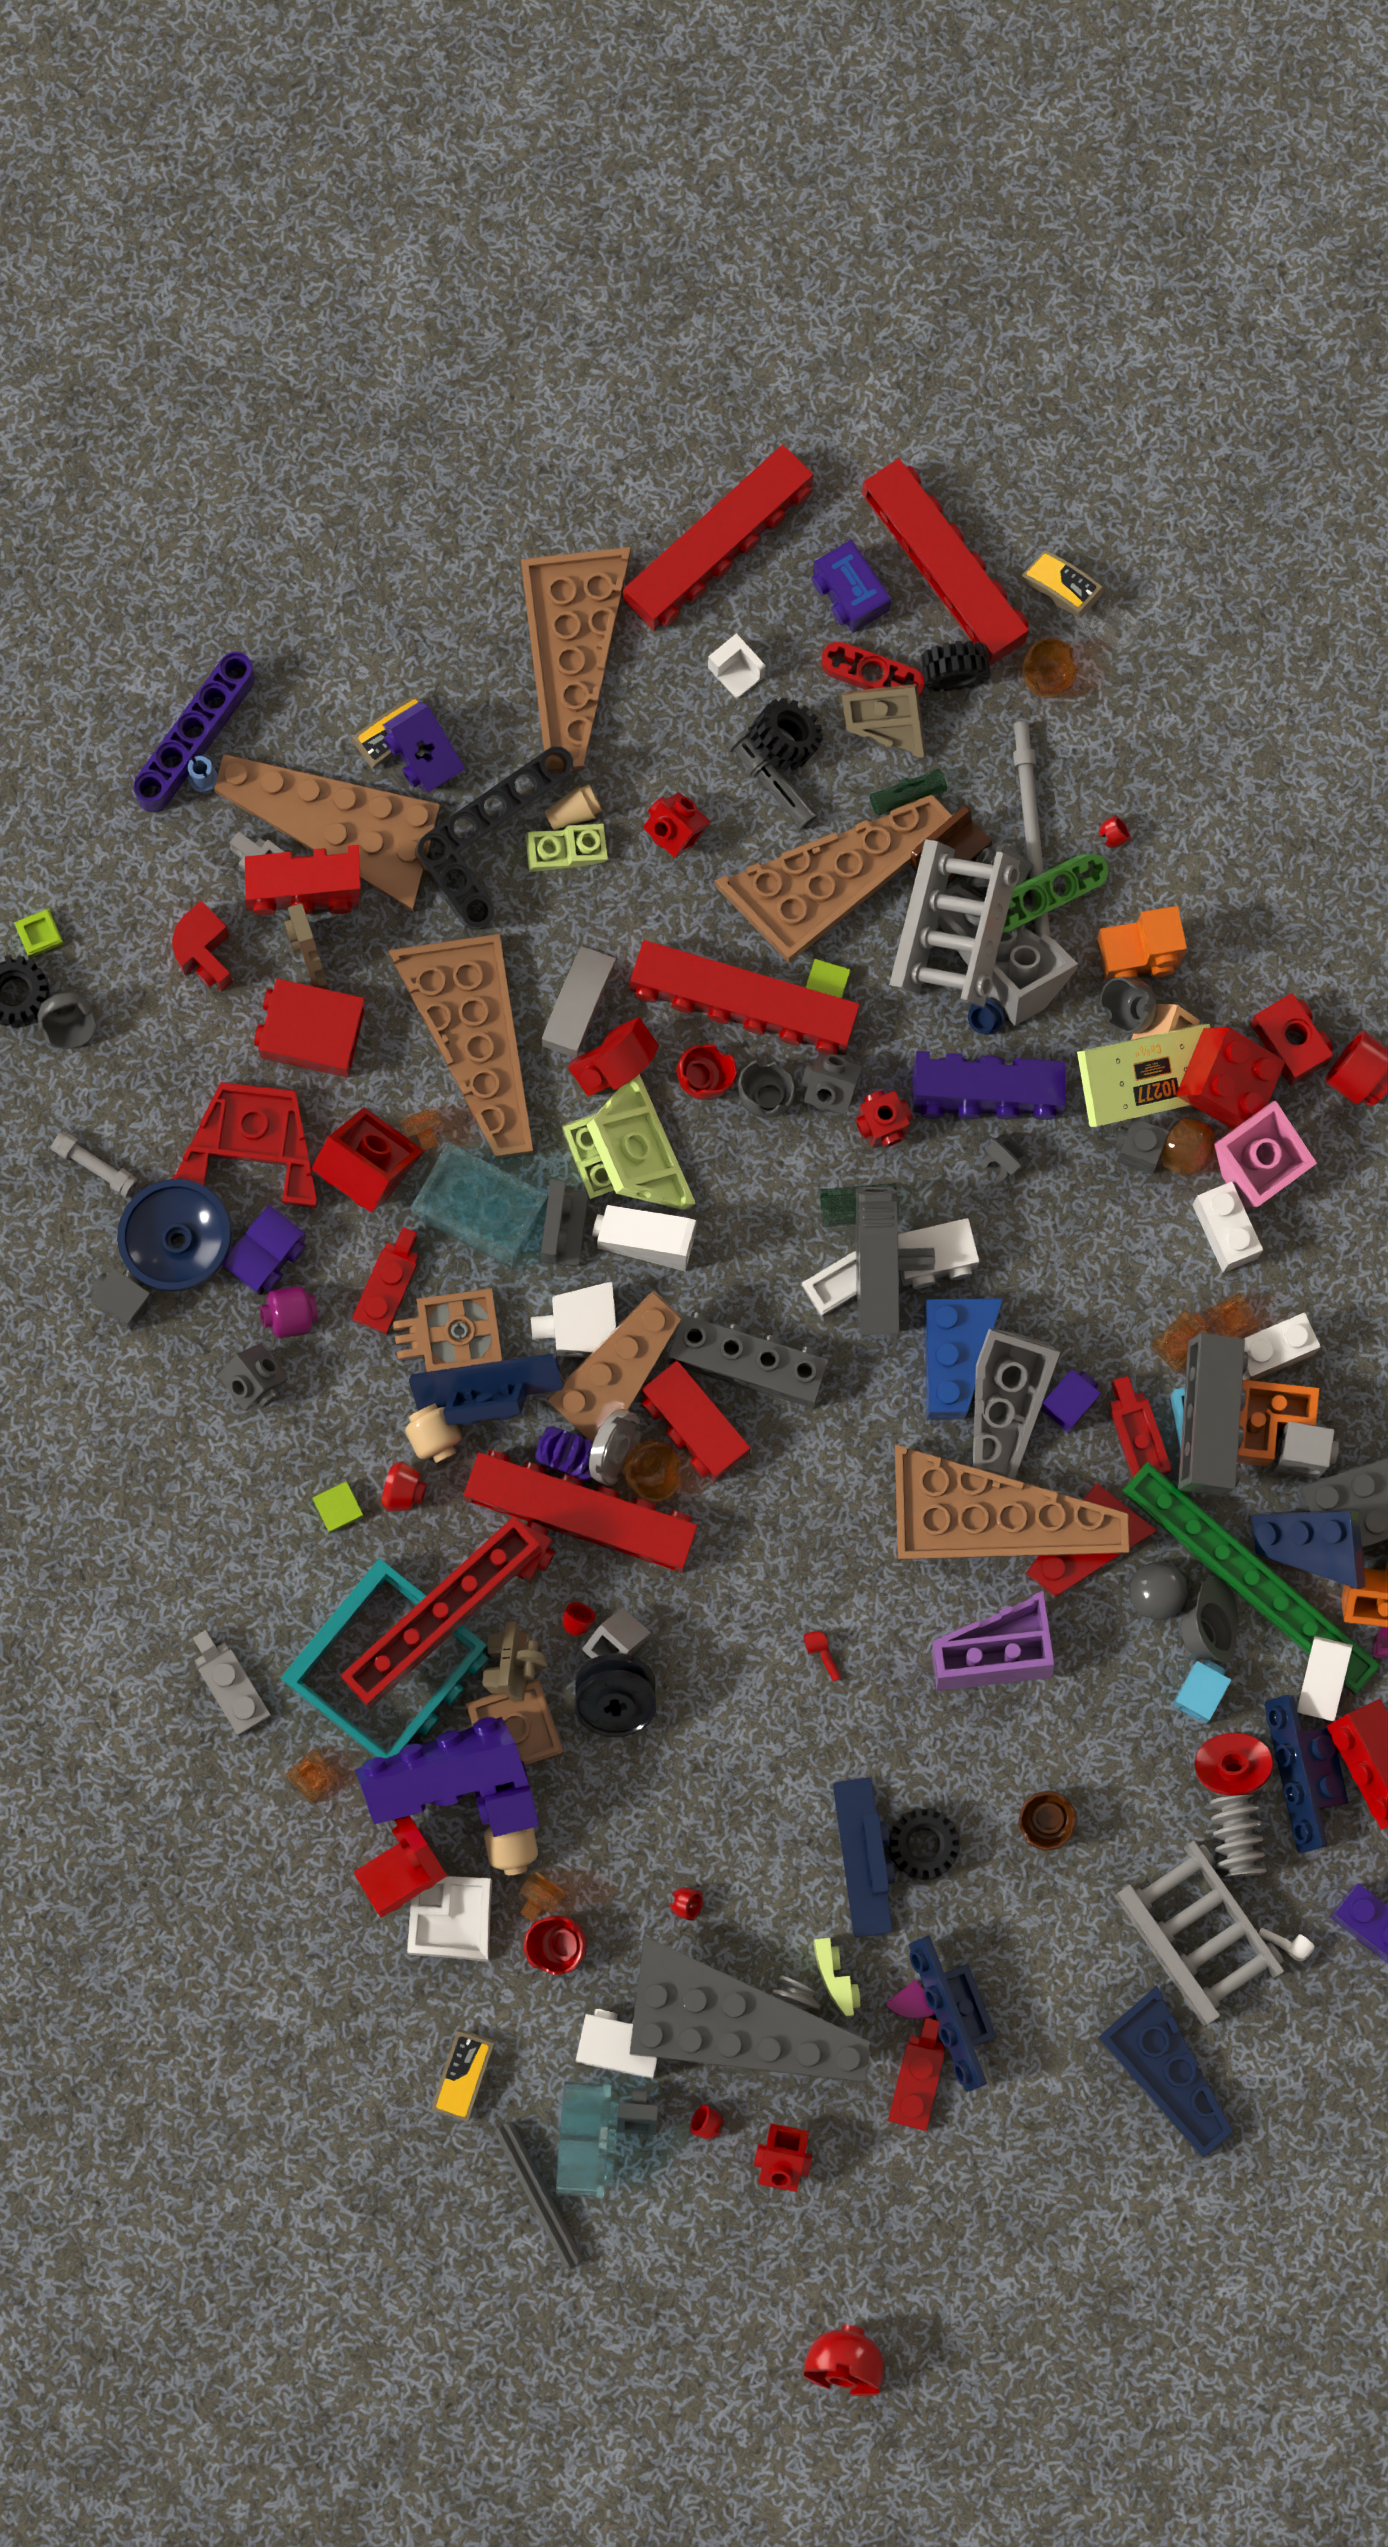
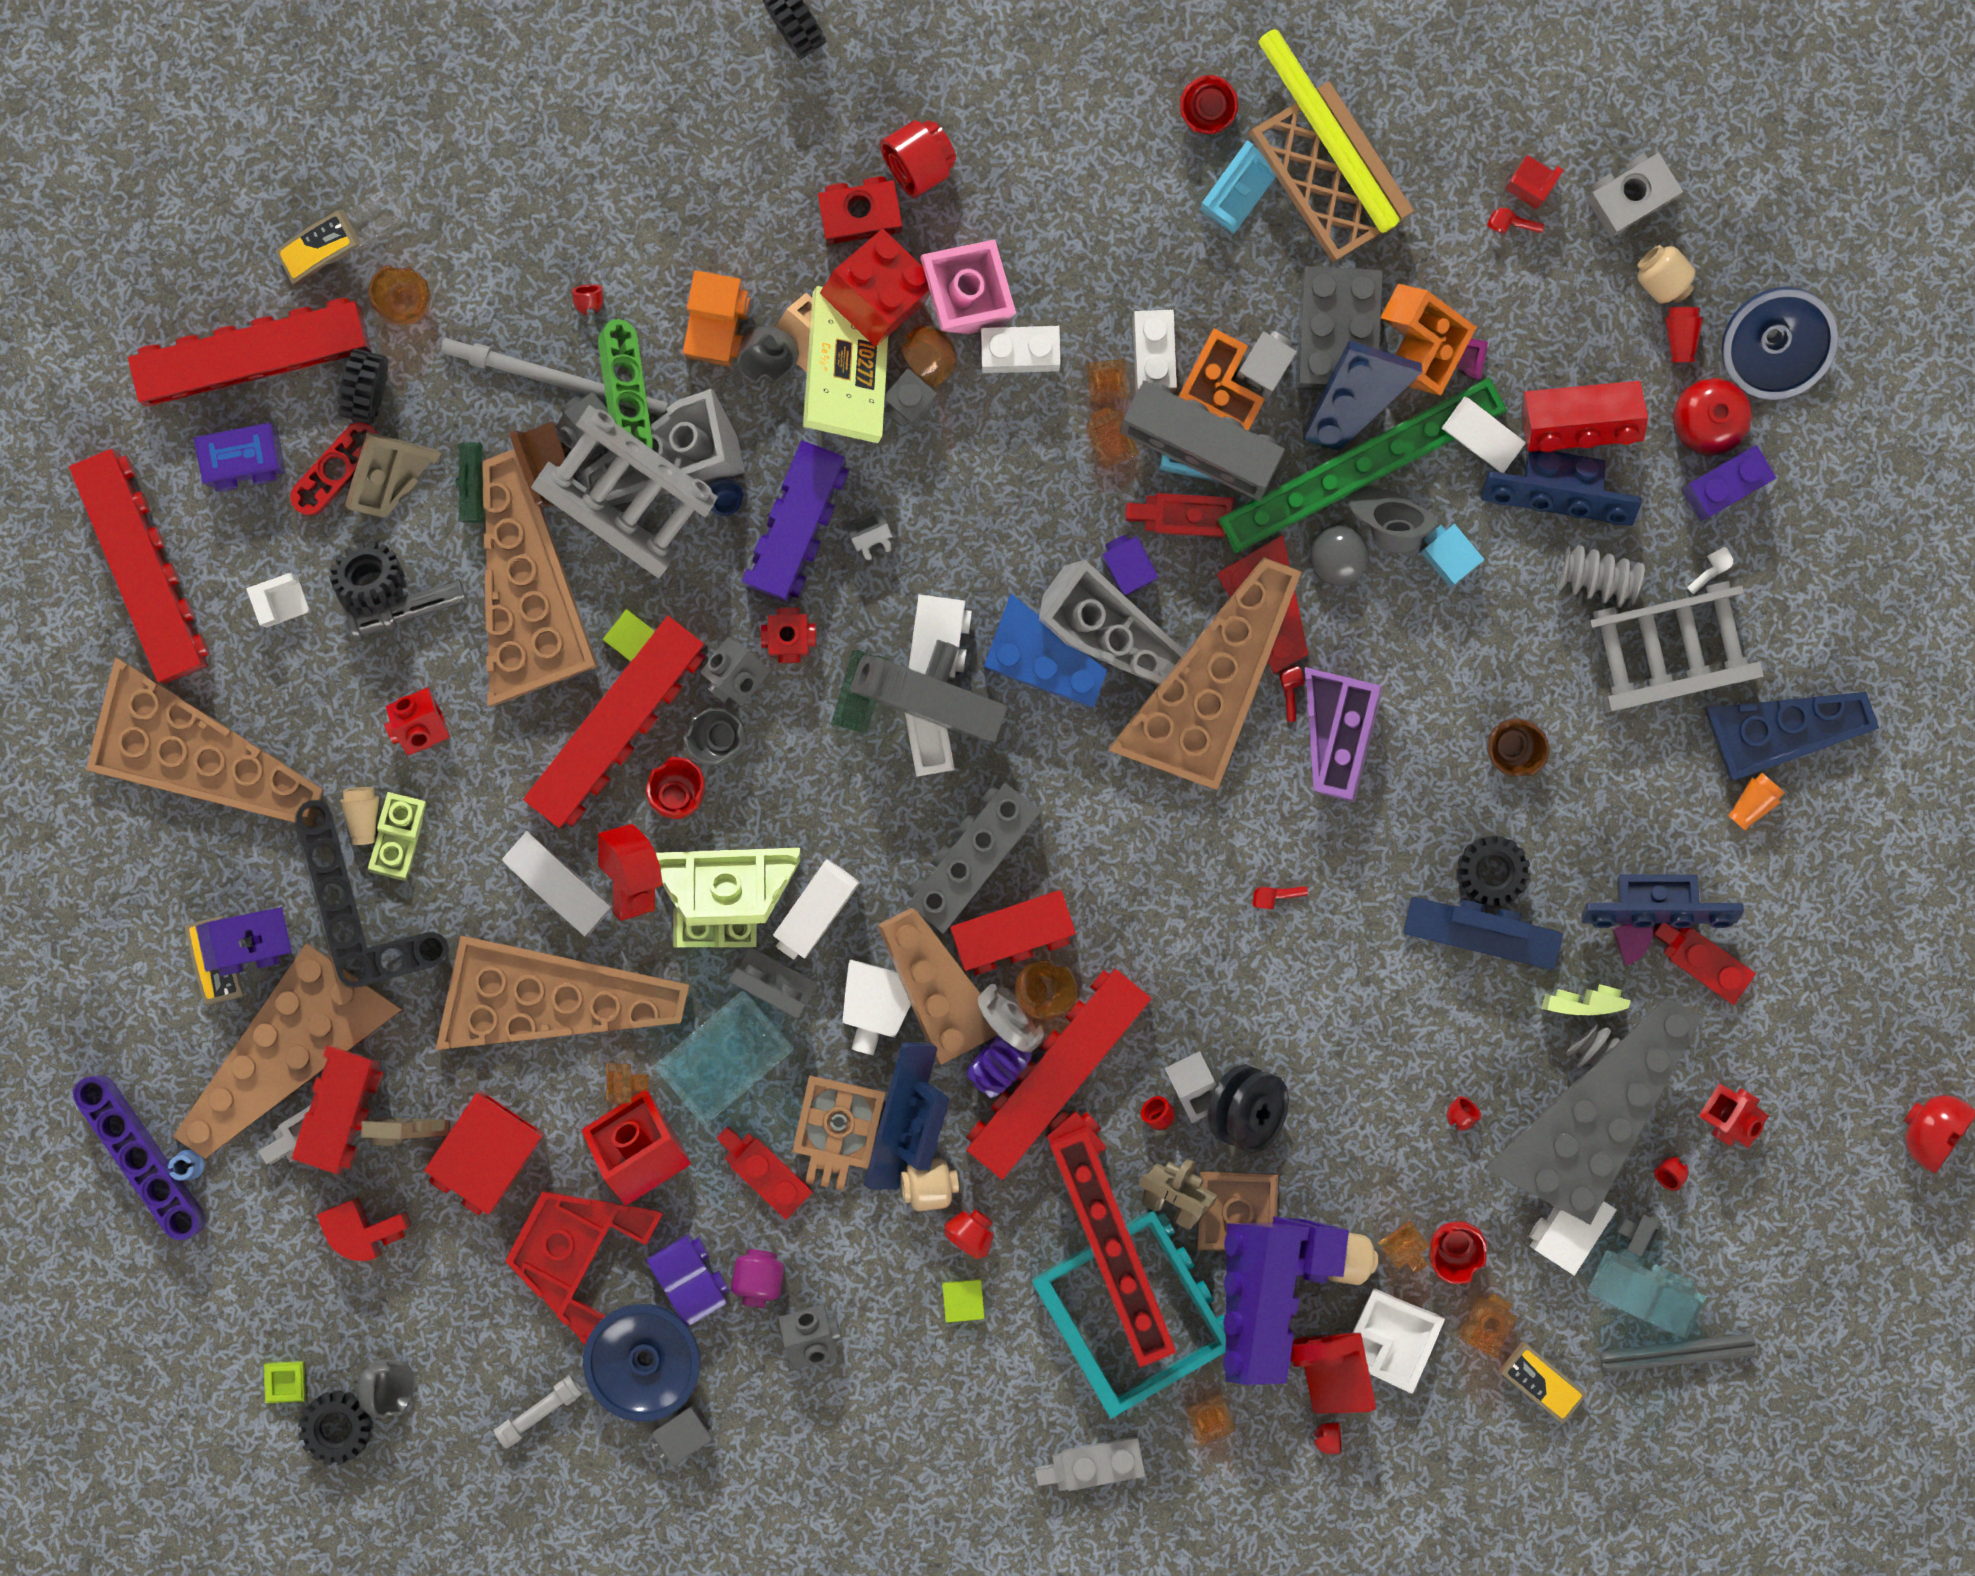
camera: 70 degrees left, 10 degrees up
(336, 1893) = (1328, 1438): none -> red hinge
(482, 2005) = (1473, 1329): none -> clear orange brick
(1025, 1588) = (1291, 678): none -> red hand
(1089, 2068) = (1756, 800): none -> orange cone
(1233, 1753) = (1516, 550): red dish -> none

